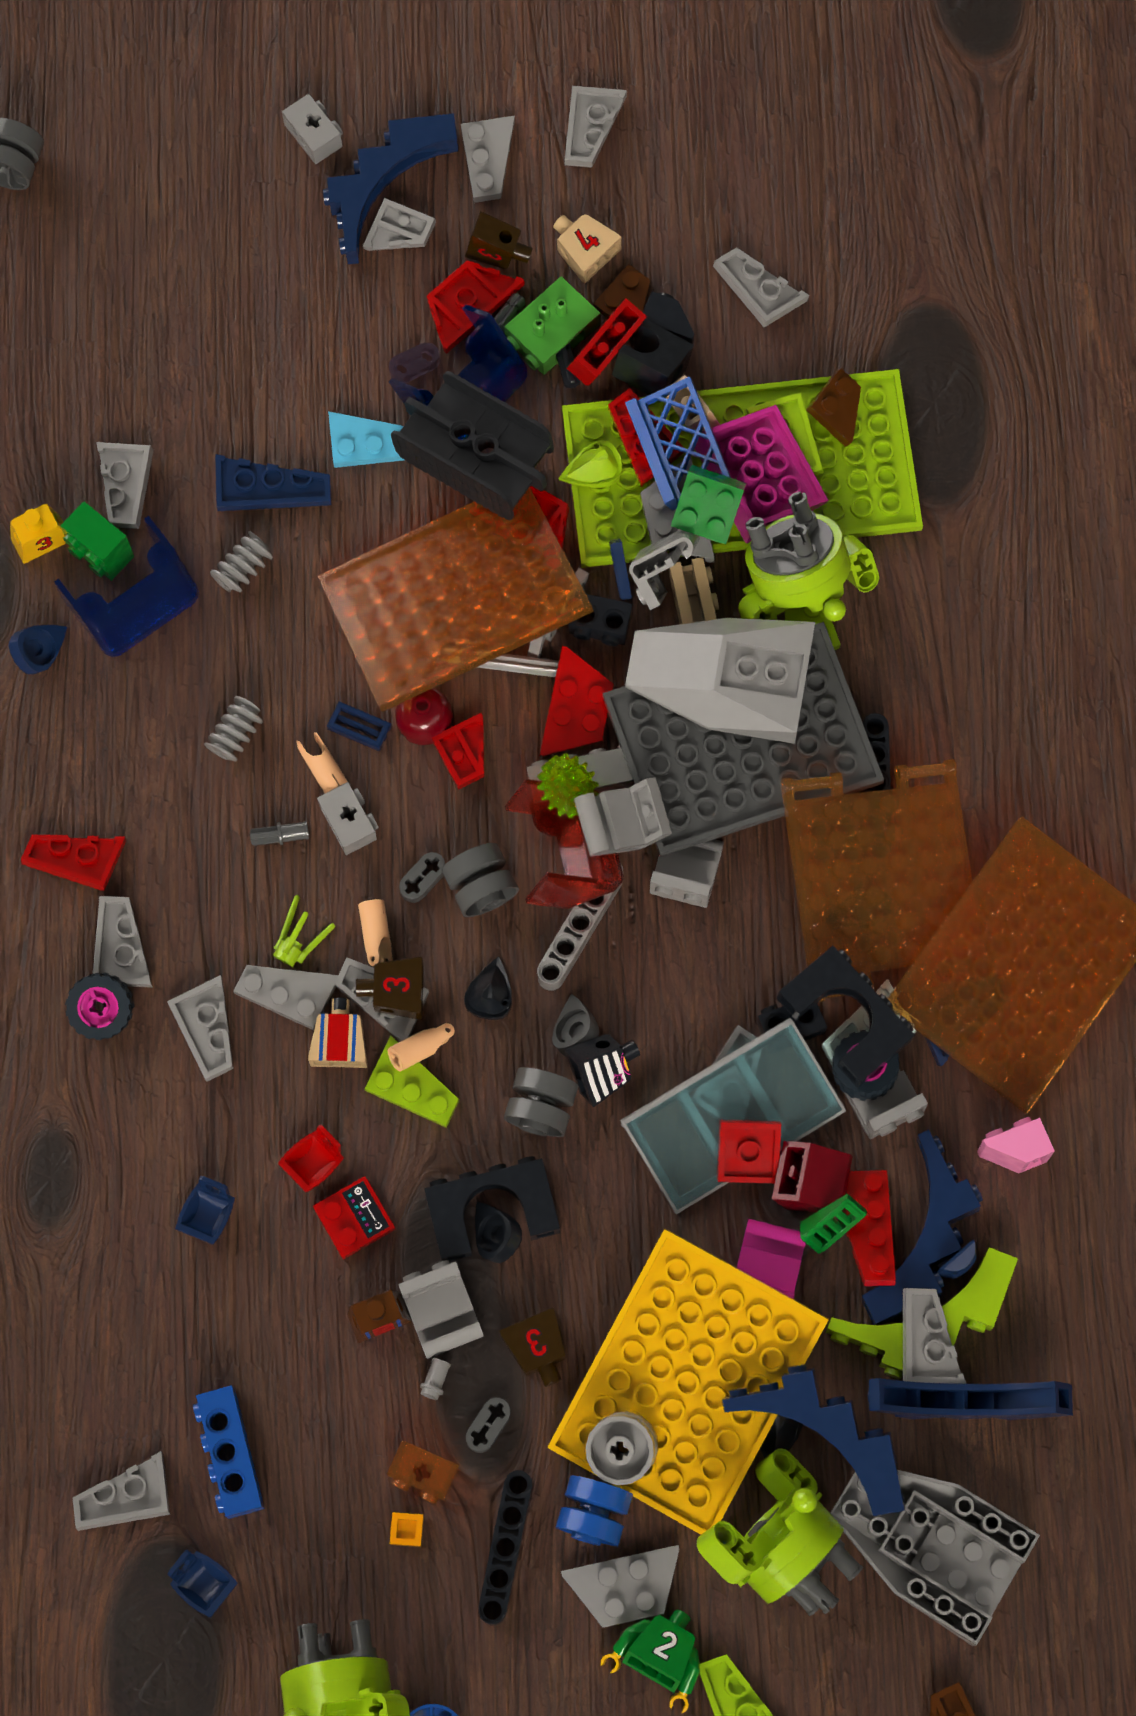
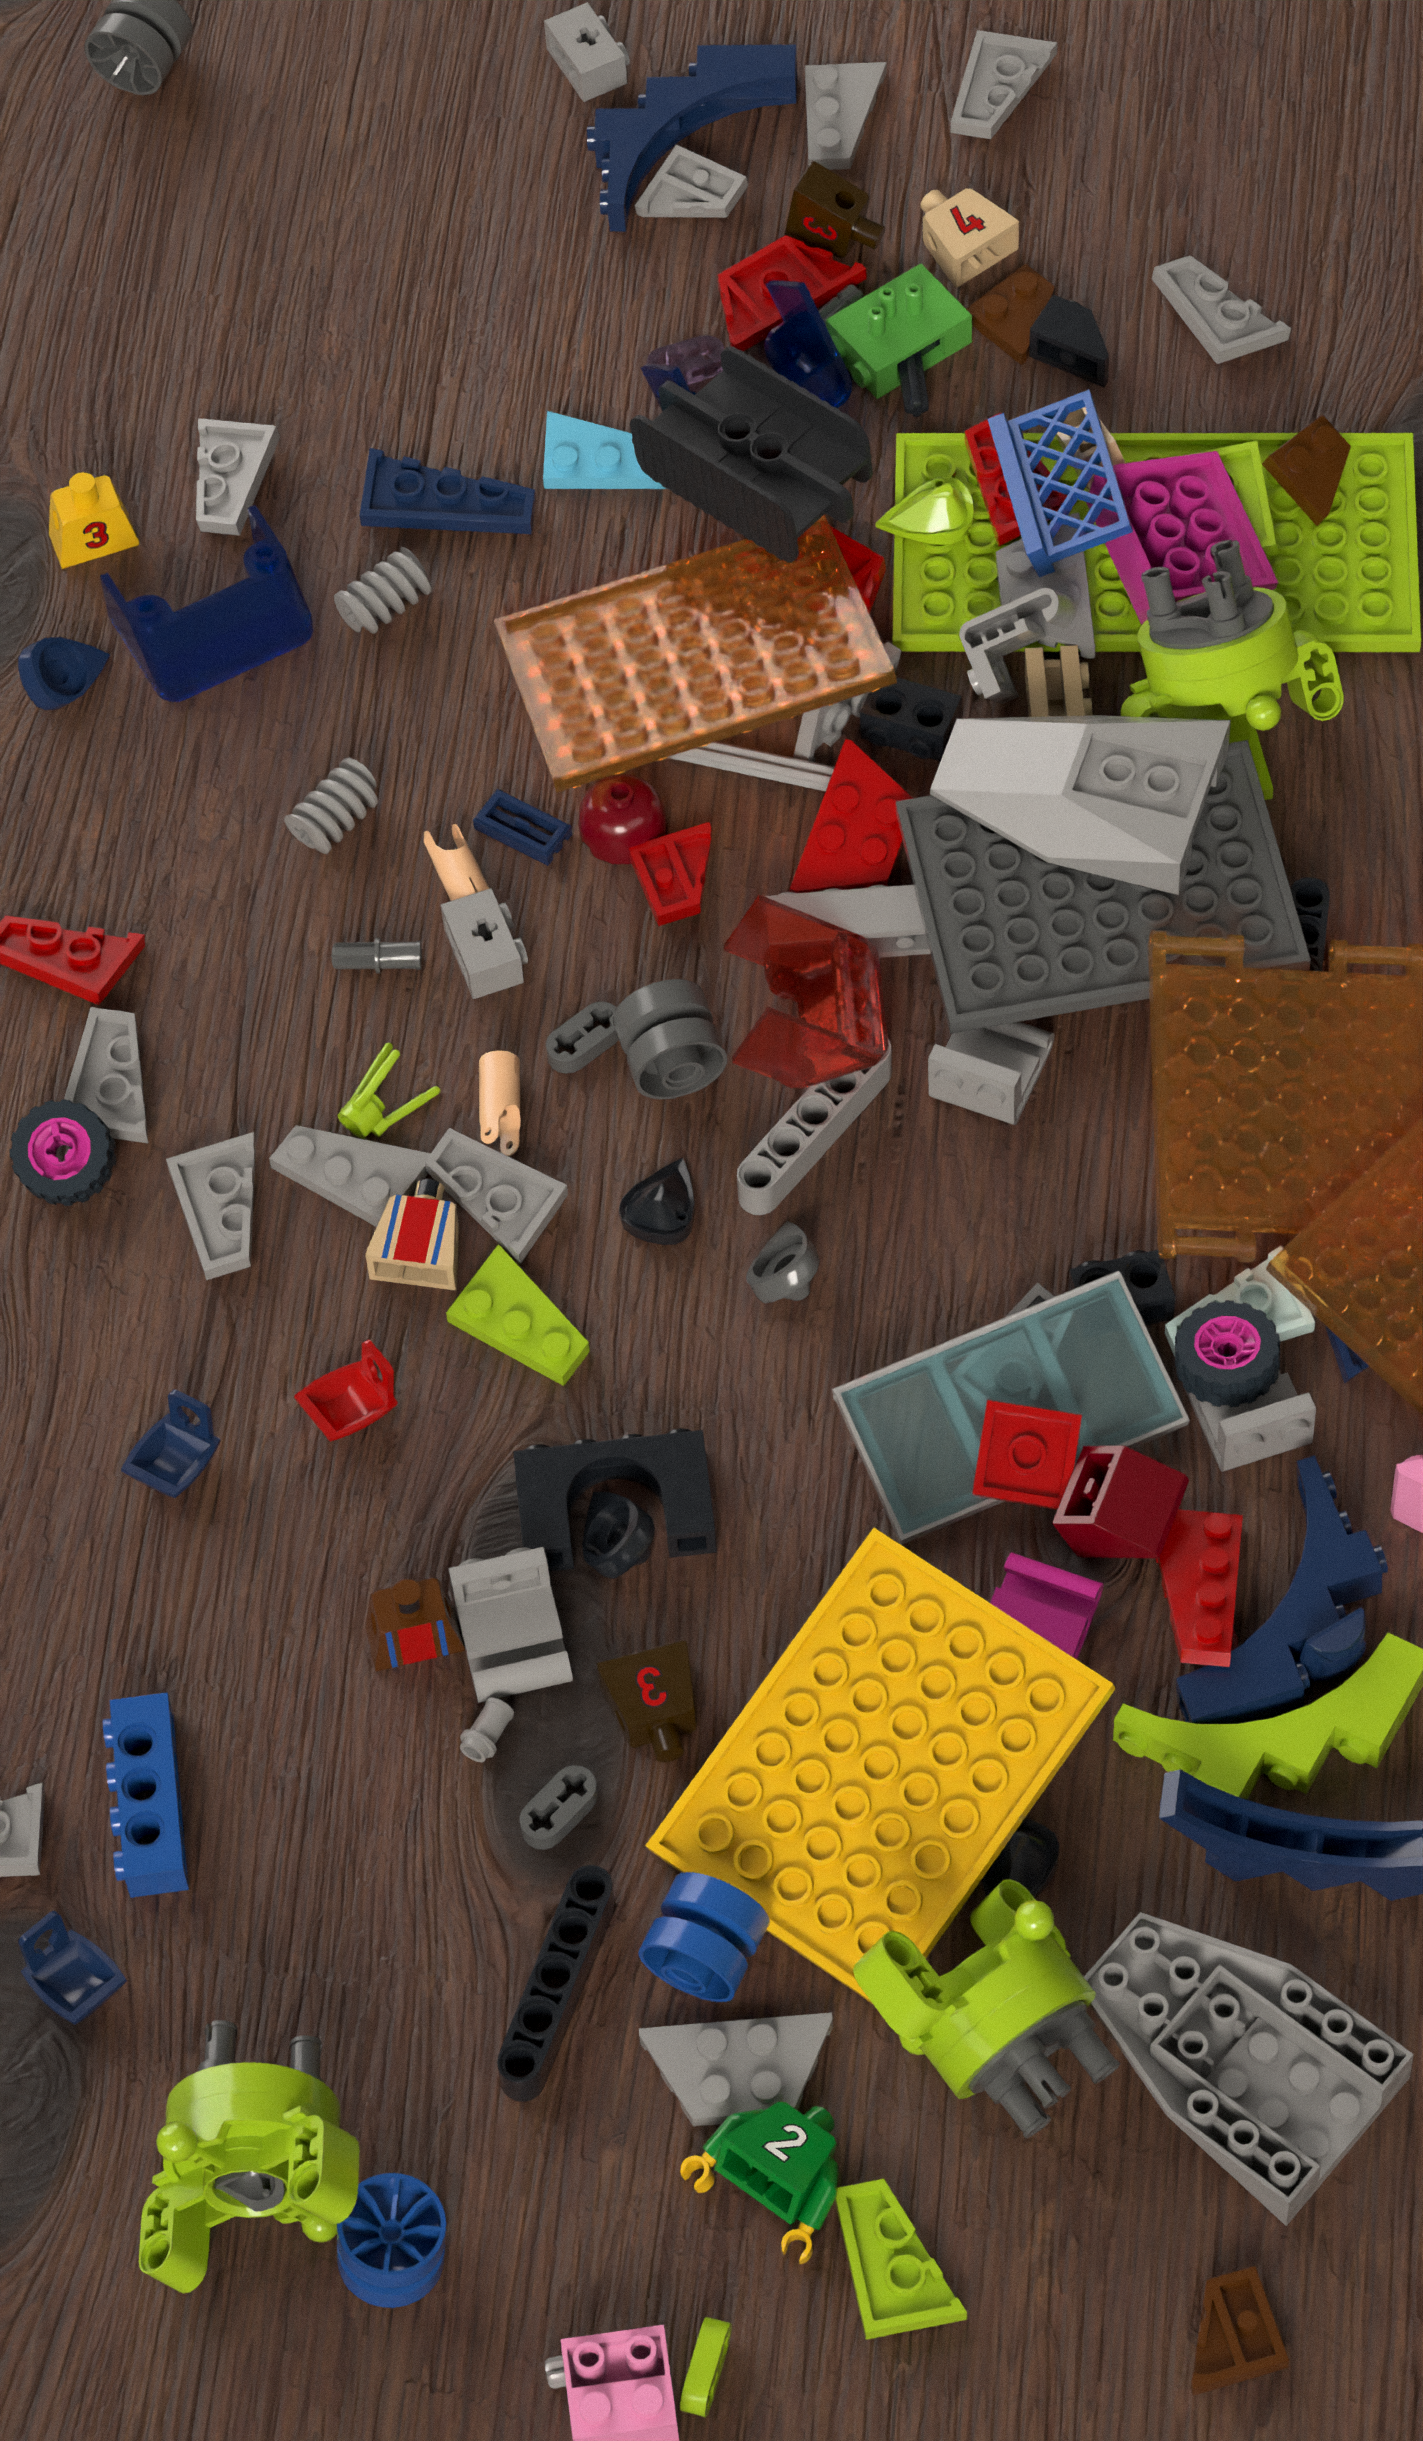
camera: 10 degrees right, 15 degrees down
(96, 541) = (174, 538): green brick -> none
(354, 1217) = (399, 1492): red plate -> none
(396, 988) = (516, 1170): dark brown torso -> none
(406, 1529) = (405, 1939): light orange plate -> none
(419, 1046) = (539, 1258): light nougat piece -> none
(441, 1472) = (434, 1836): clear orange brick -> none
(539, 1109) = (713, 1351): dark grey wheel -> none
(564, 781) = (821, 912): clear neon green gear -> none
(601, 1066) = (814, 1314): black torso -> none
(603, 1450) = (754, 1814): light grey wheel -> none
(606, 342) = (974, 349): red piece -> none
(620, 569) = (949, 648): dark blue tile -> none
(623, 818) = (899, 967): light grey piece -> none
(655, 361) = (1042, 377): black piece -> none
(708, 504) = (1092, 557): green brick -> none
(800, 1400) = (1104, 1829): dark blue arch -> none
(821, 1238) = (1135, 1588): green slope -> none
(835, 975) = (1193, 1210): black arch -> none
(926, 1342) = (1268, 1744): light grey wing -> none

